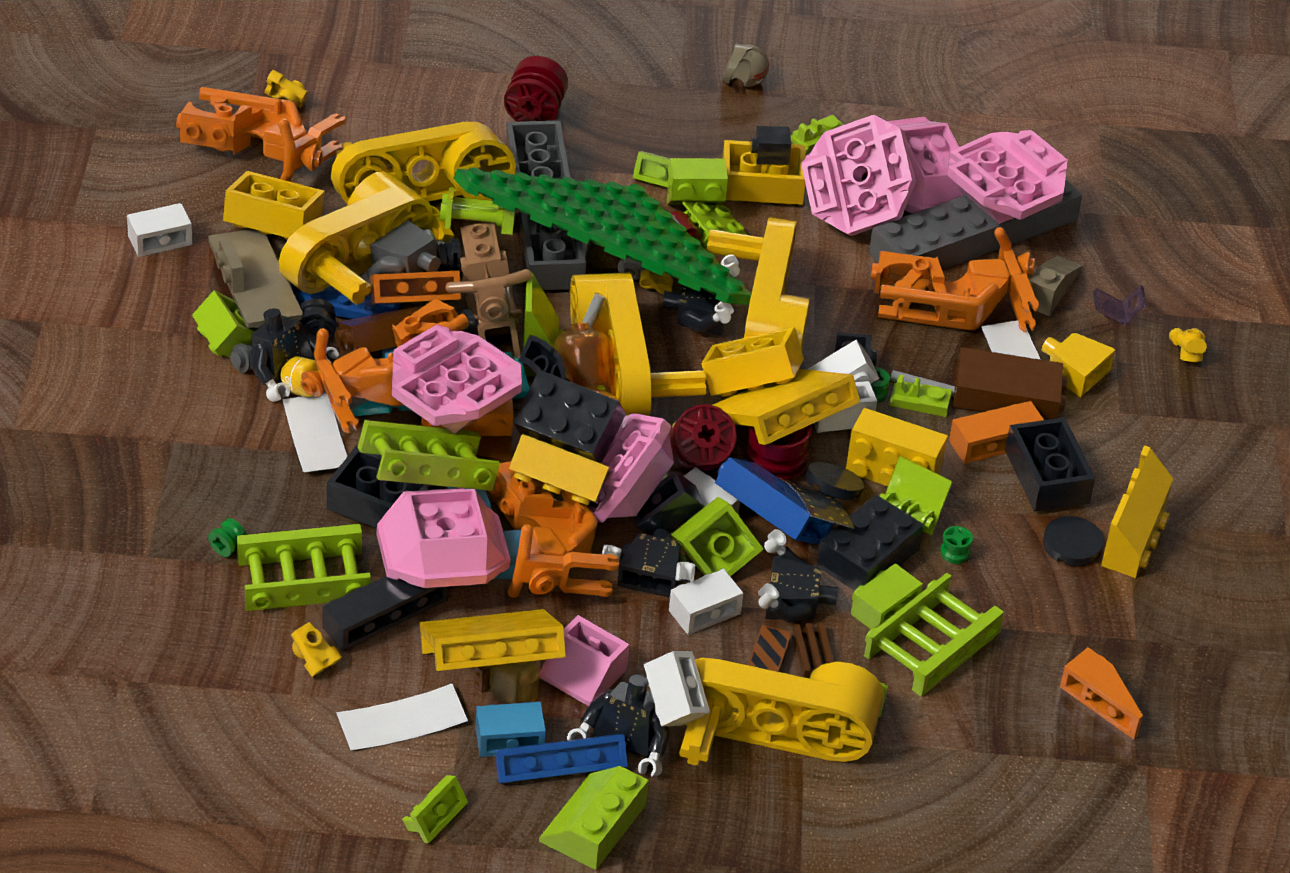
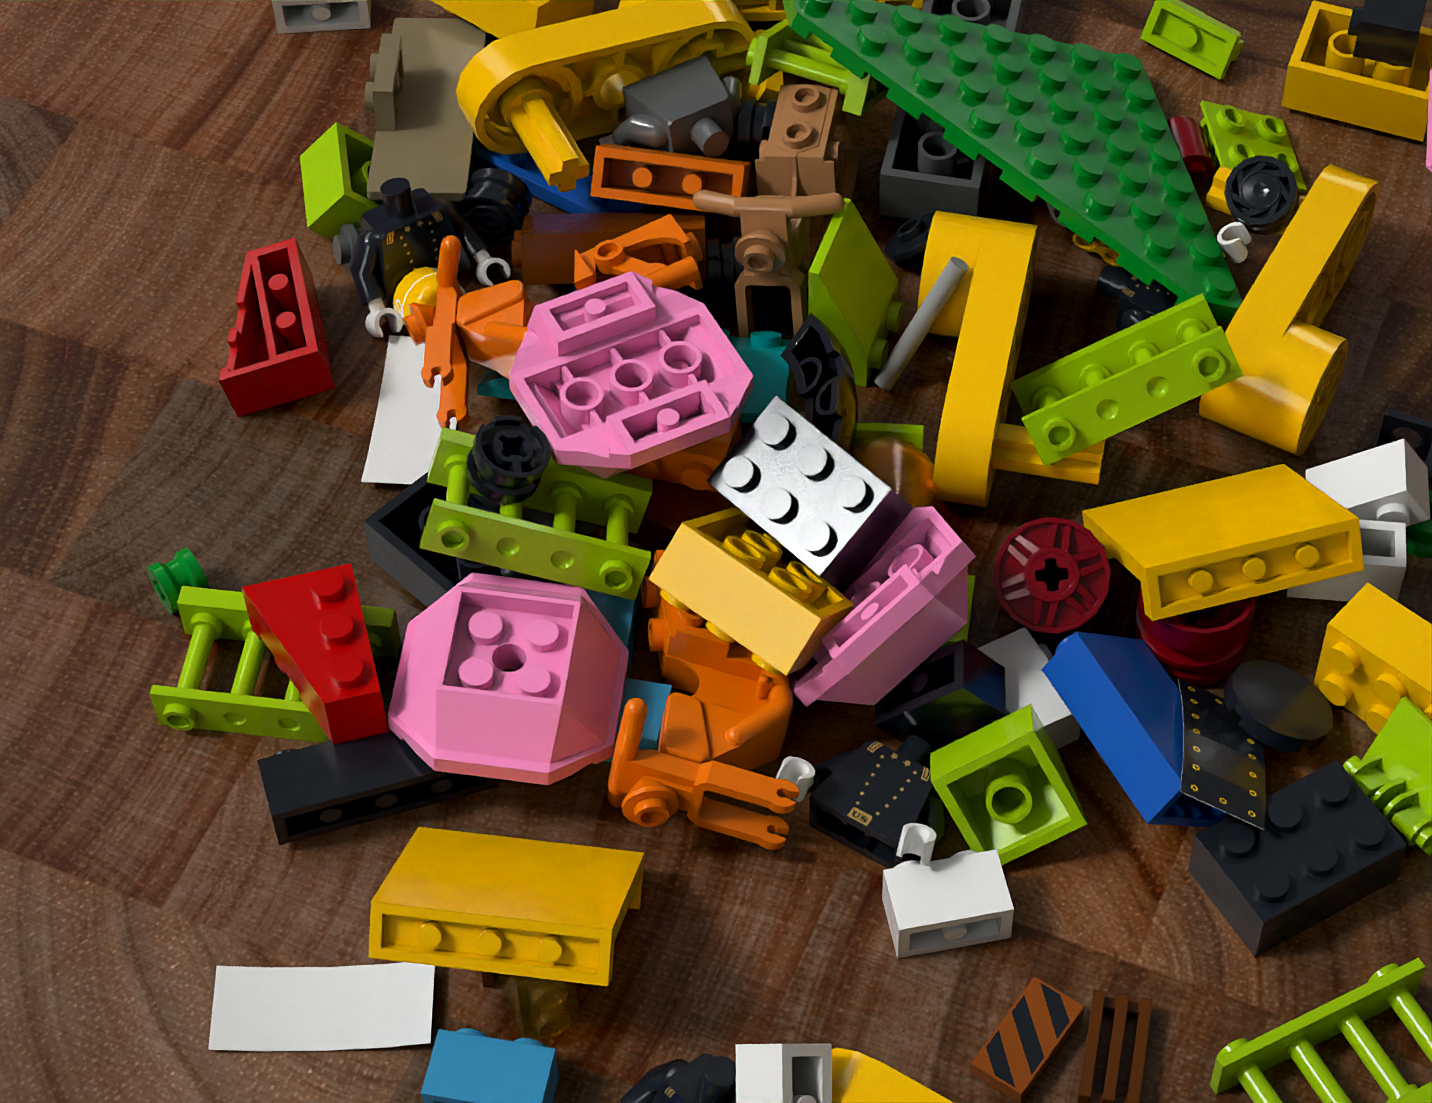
camera: 25 degrees right, 10 degrees up
(227, 404) = (278, 333): none -> red wedge
(317, 652) = (225, 848): yellow plate -> none
(339, 542) = (323, 646): none -> red wedge
(408, 427) = (508, 459): none -> black wheel
(559, 295) = (910, 240): none -> black piece
(586, 354) = (901, 371): clear orange cylinder -> none
(591, 661) = (677, 979): bright pink slope -> none
(697, 181) = (1236, 67): lime slope -> none
(706, 337) = (1125, 379): none -> lime fence
(739, 237) = (1262, 194): none -> black wheel
(752, 362) = (1209, 444): yellow brick -> none
(793, 585) = (1119, 911): black torso -> none
(884, 596) = (1287, 975): lime brick -> none

